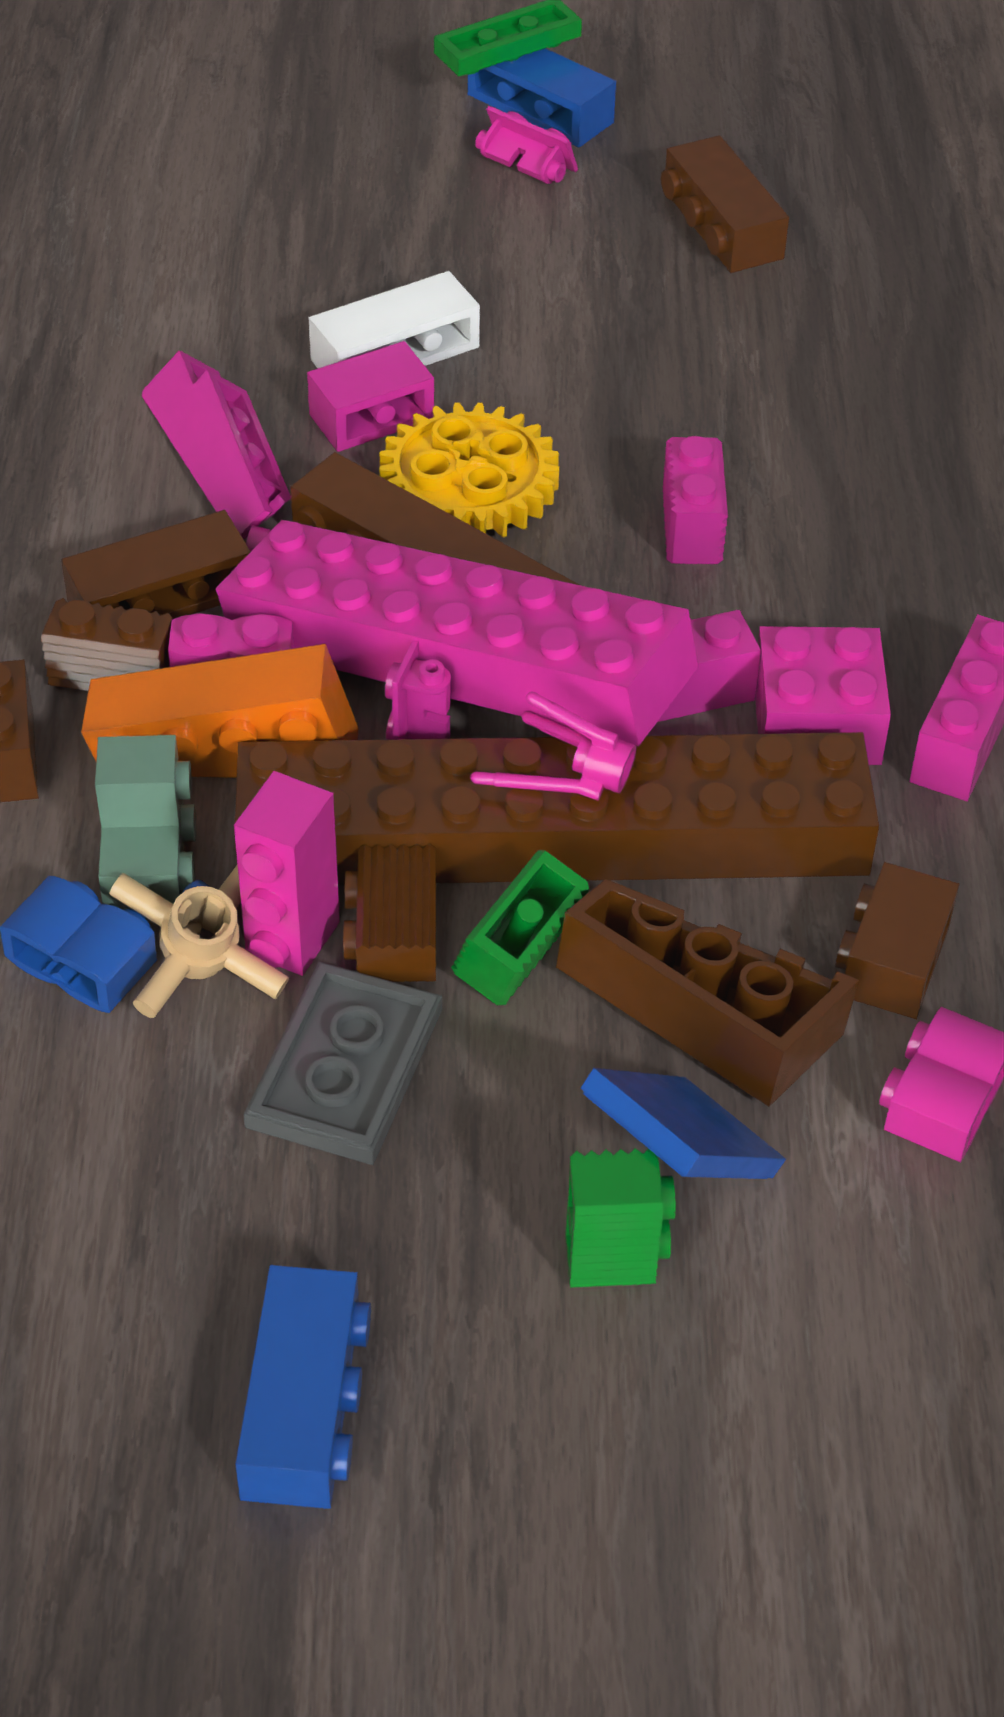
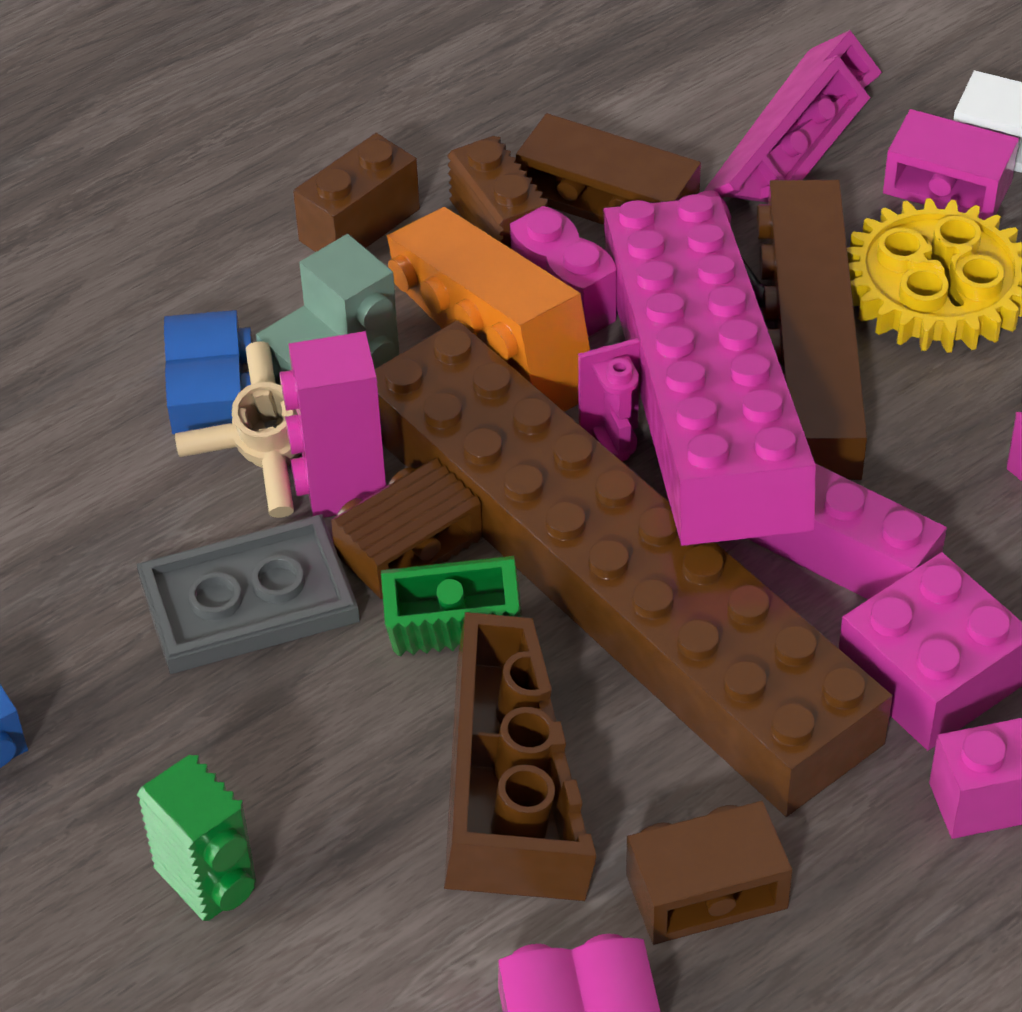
camera: 55 degrees right, 0 degrees up
(599, 755) = (637, 530): dark pink plant -> none
(682, 1125) = (325, 825): blue tile -> none

